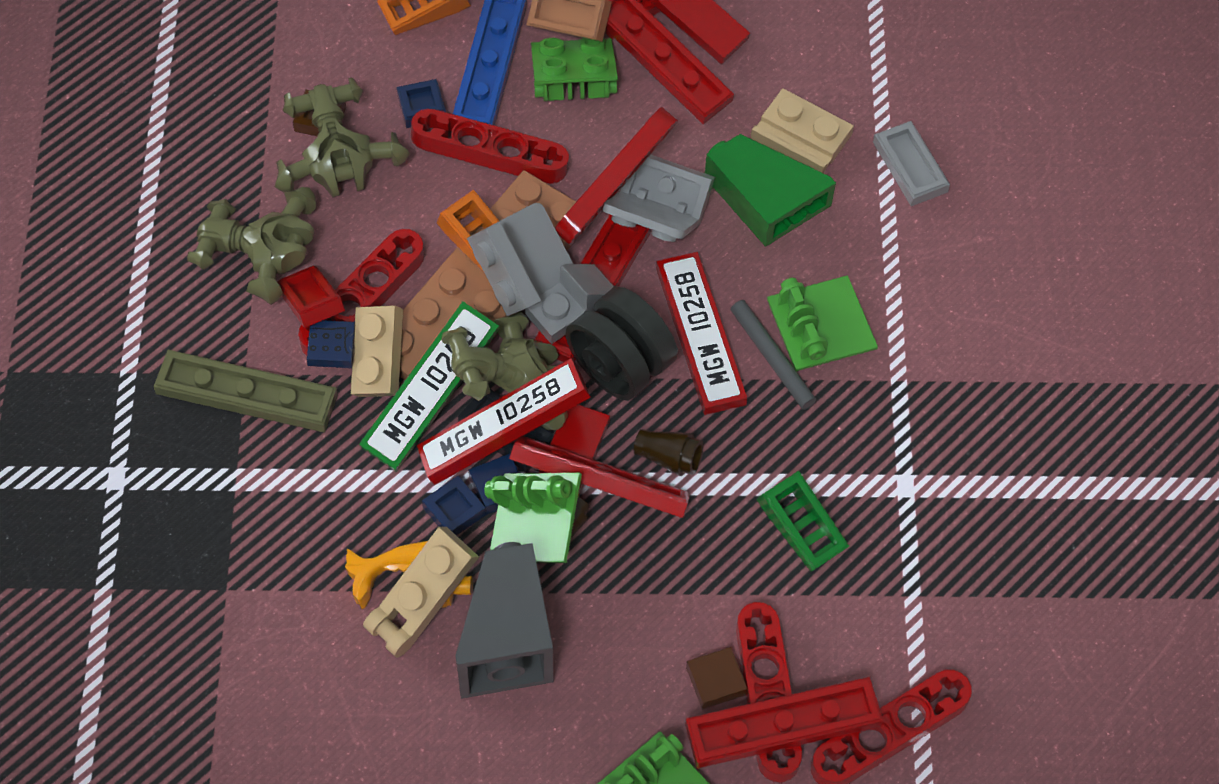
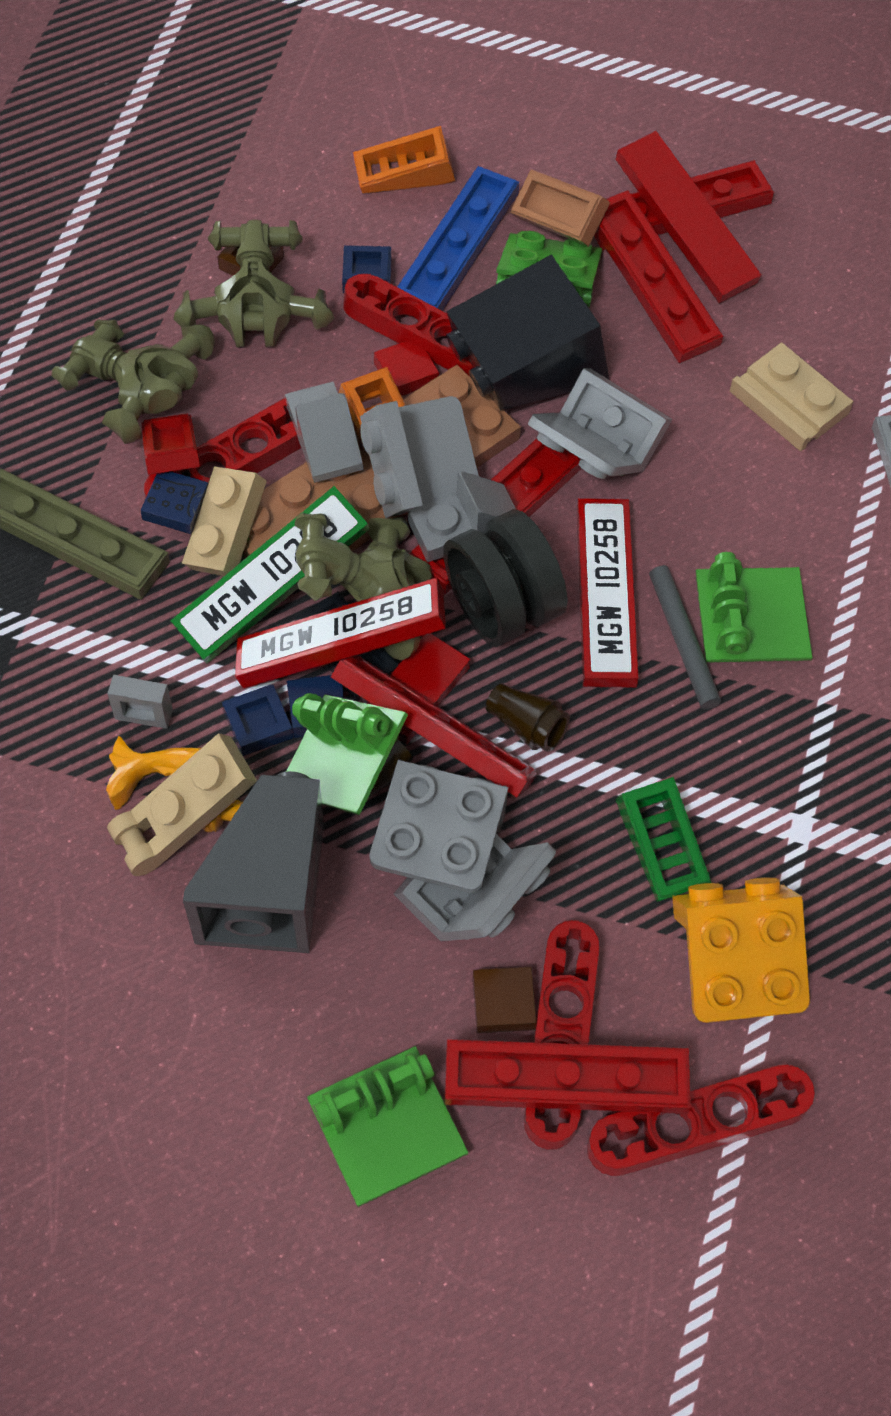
camera: 15 degrees right, 0 degrees up
(356, 516) = (140, 701): none -> light grey tile
(436, 254) = (325, 431): none -> light grey slope
(483, 177) = (408, 366): none -> red tile
(574, 133) = (527, 336): none -> black slope
(615, 175) = (555, 387): red beam -> none
(629, 556) = (438, 827): none -> light grey bracket
(668, 593) = (489, 911): none -> light grey bracket
(767, 187) = (732, 446): green slope -> none
(889, 590) = (744, 950): none -> light orange bracket

